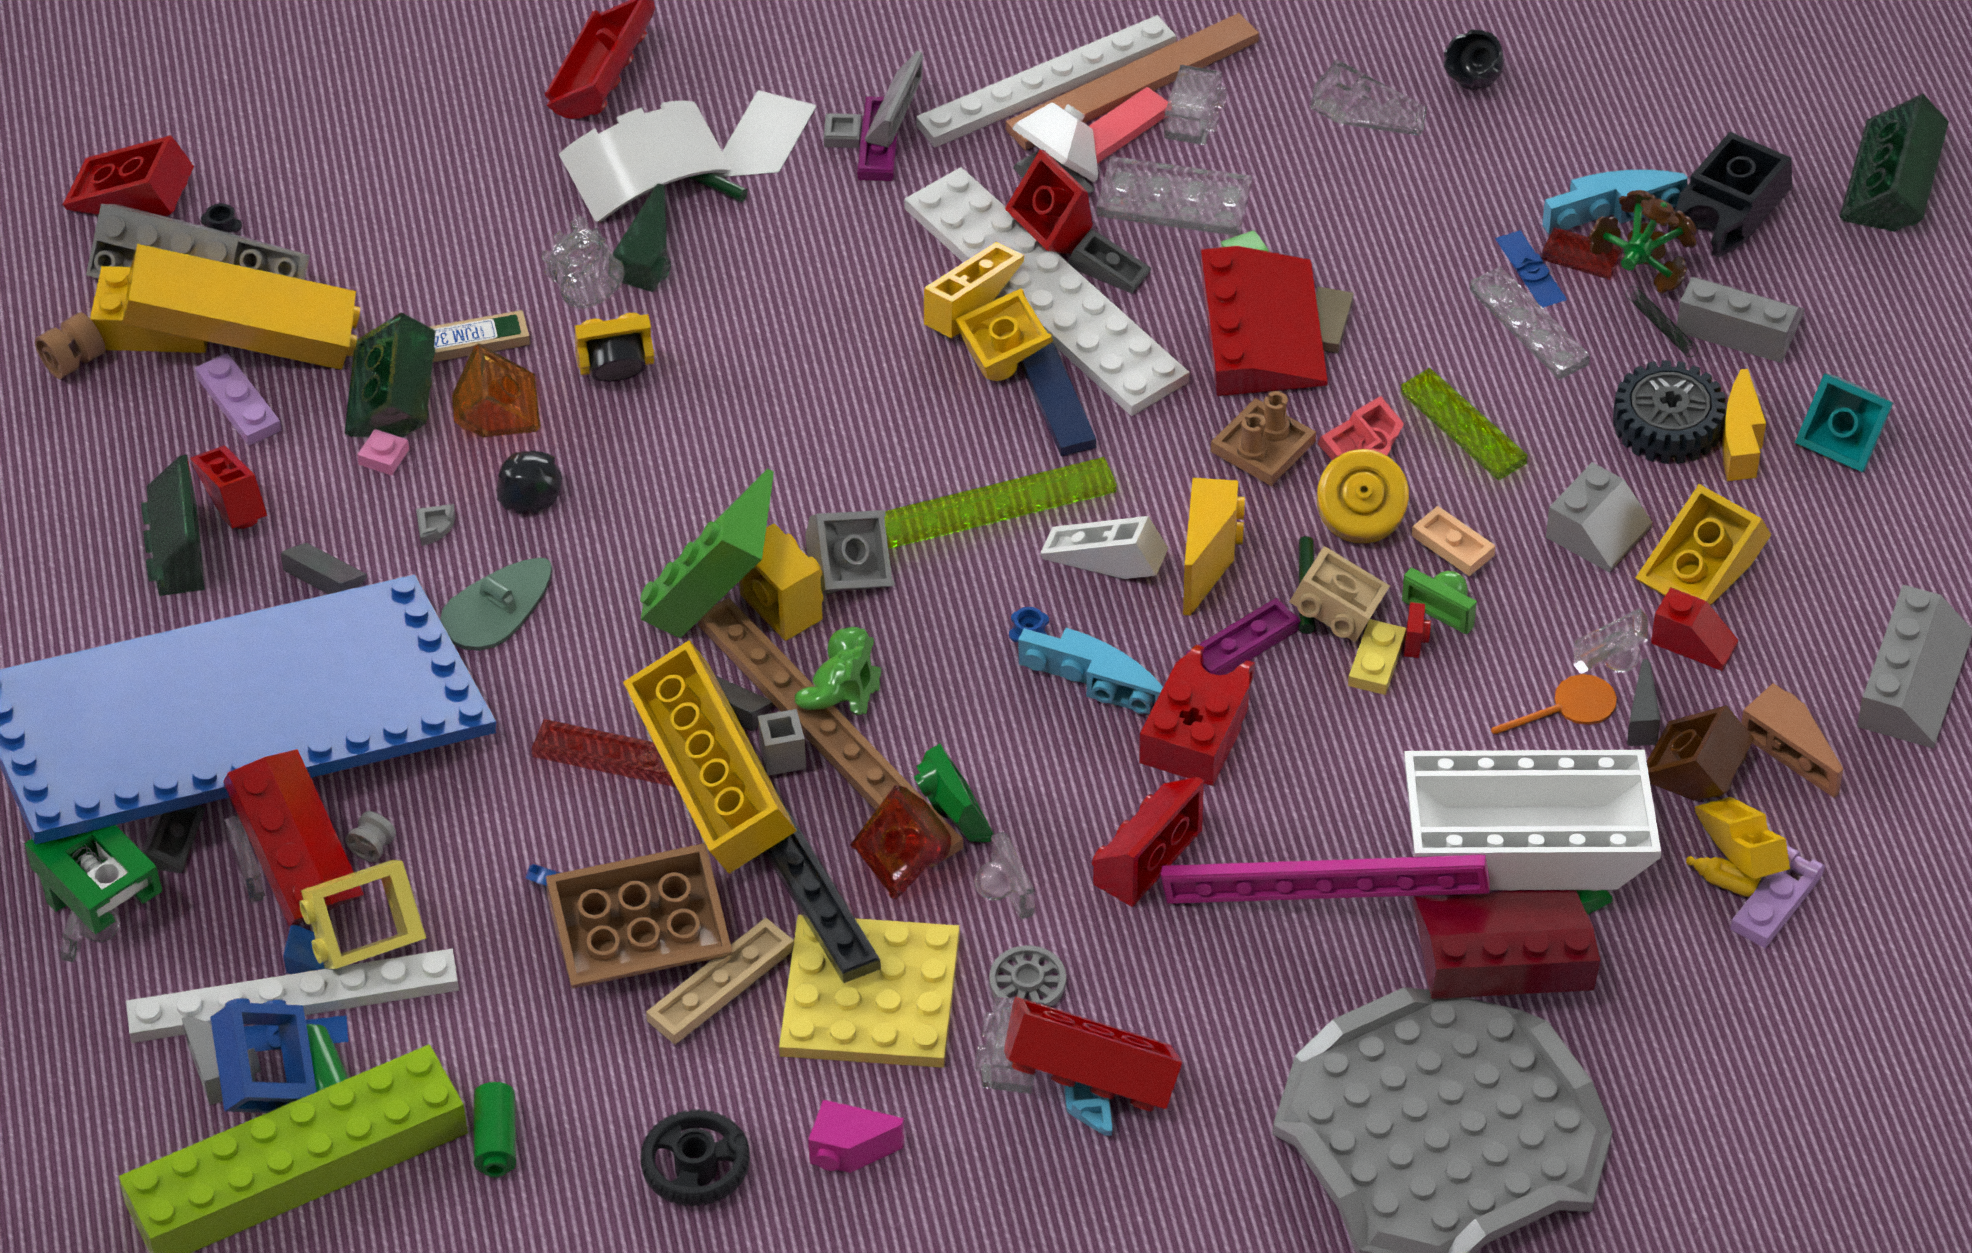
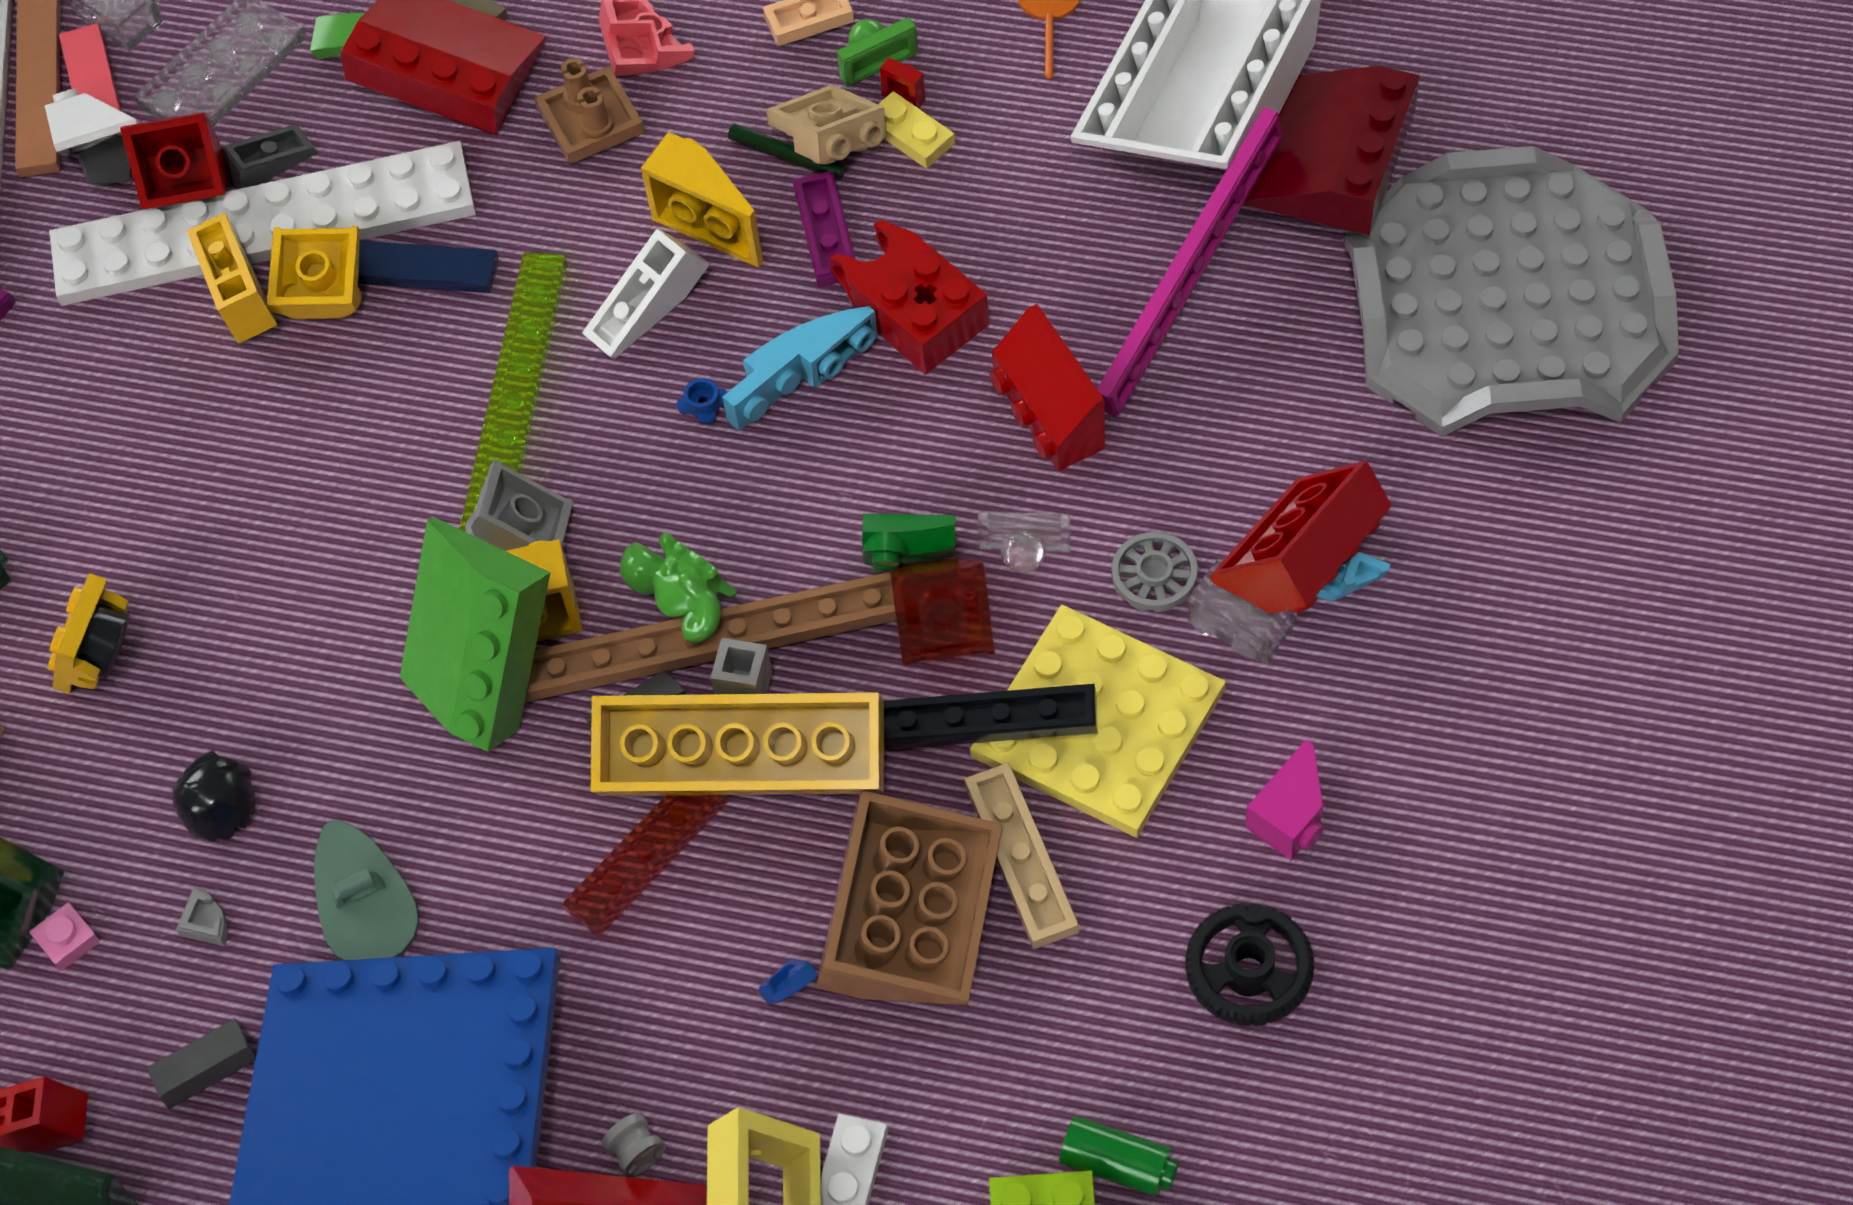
camera: 60 degrees left, 10 degrees up
(495, 396) = (69, 787): clear orange slope -> none
(1362, 496) = (719, 57): yellow wheel -> none

